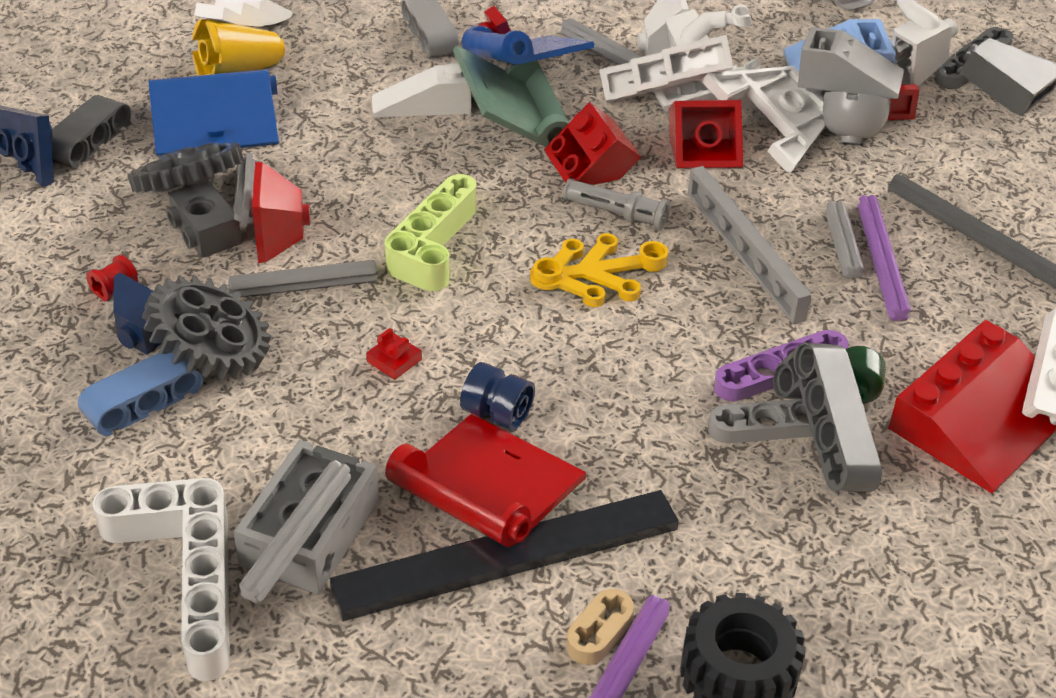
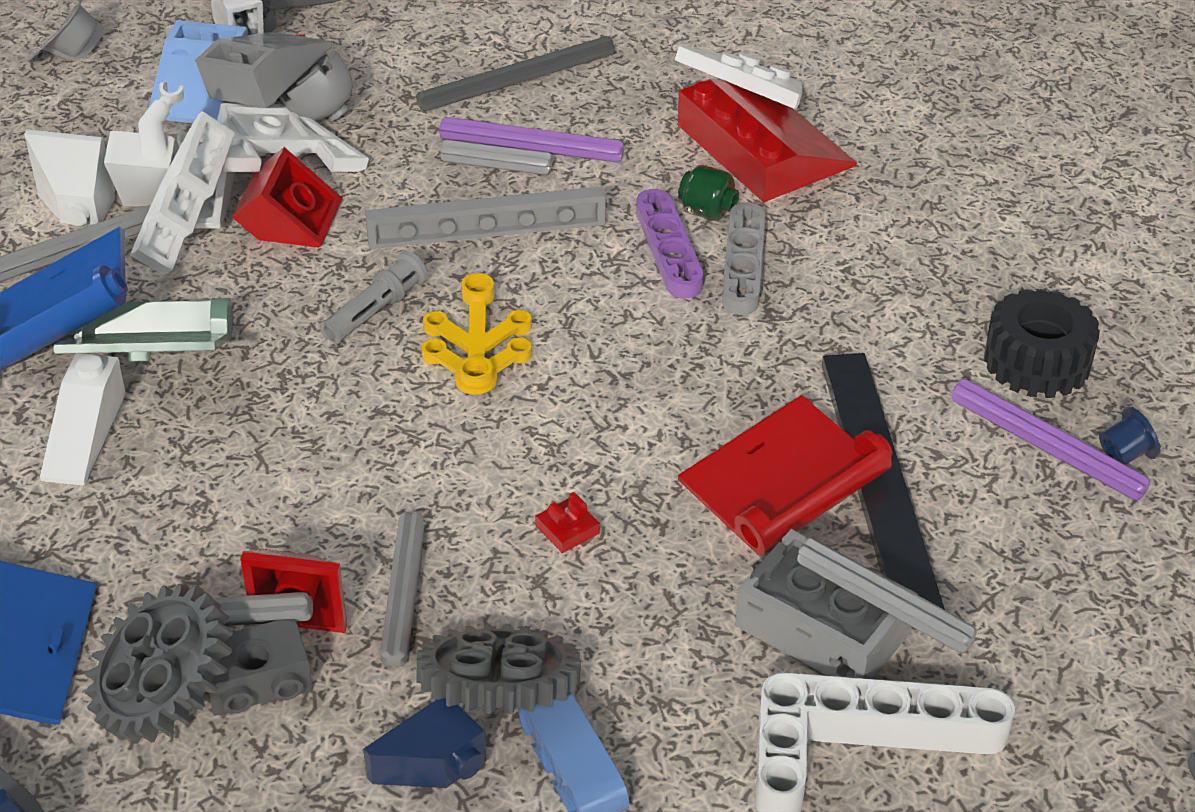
camera: 75 degrees left, 0 degrees up
(102, 281) = (338, 776): red bush -> none
(417, 244) = (392, 475): yellowish green beam -> none
(493, 393) = (674, 441): dark blue wheel -> none
(592, 149) = (275, 296): red slope -> none
(592, 621) = (980, 432): tan beam -> none
(835, 413) = (769, 220): dark grey beam -> none

